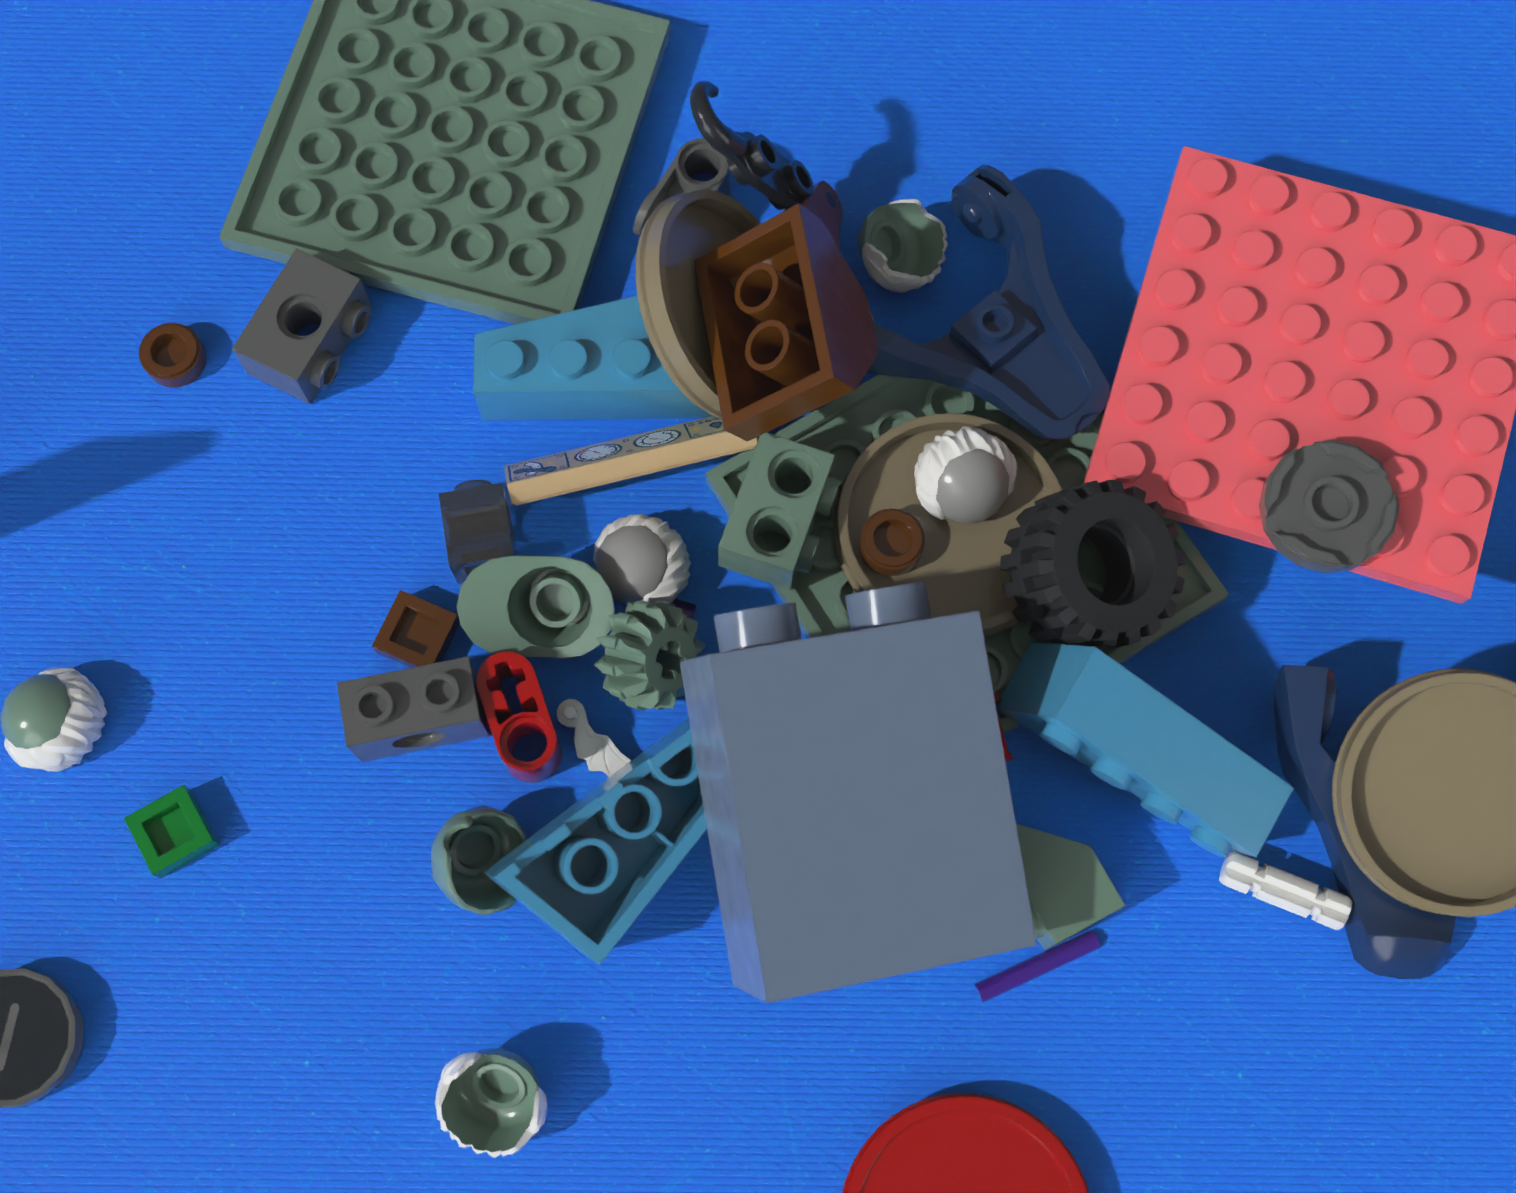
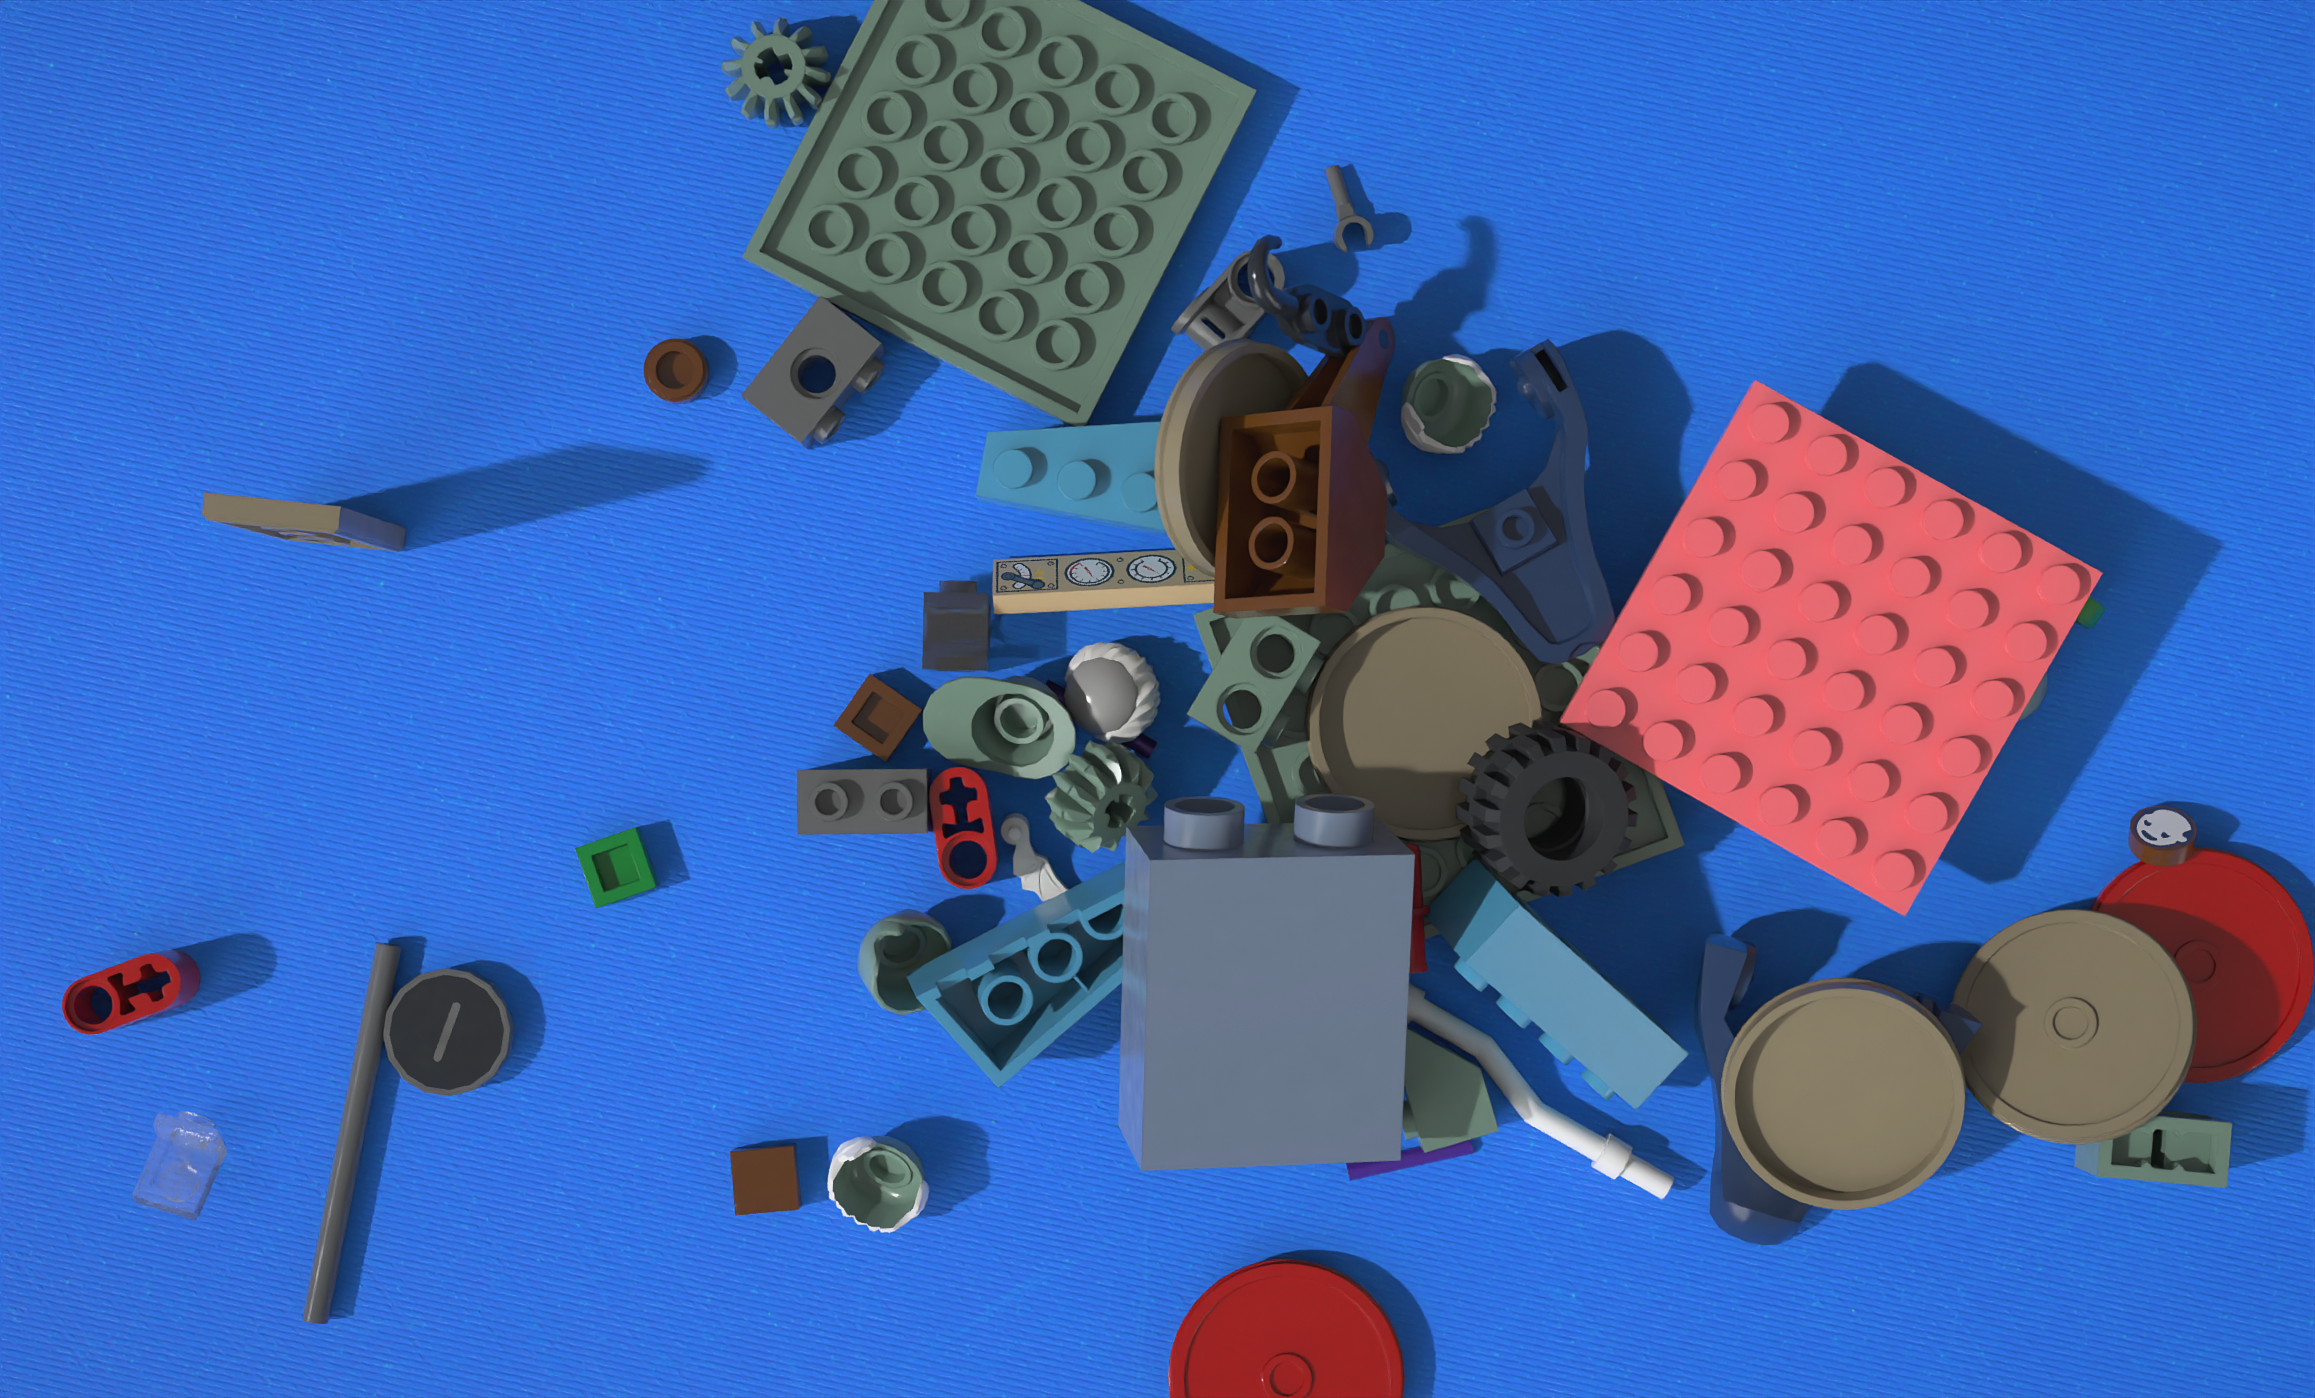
camera: 15 degrees right, 15 degrees up
(52, 719) = (517, 735): hair -> none
(229, 81) = (792, 53): none -> sand green gear
(371, 1127) = (765, 1179): none -> reddish brown tile
(773, 113) = (1345, 209): none -> dark grey hand
(891, 542) = (1360, 731): reddish brown tile -> none
(964, 475) = (1447, 681): hair -> none
(1237, 916) = (1607, 1154): none -> white bar
(1285, 890) = (1662, 1140): white axle -> none
(1328, 506) = (1788, 802): dark grey tile -> none

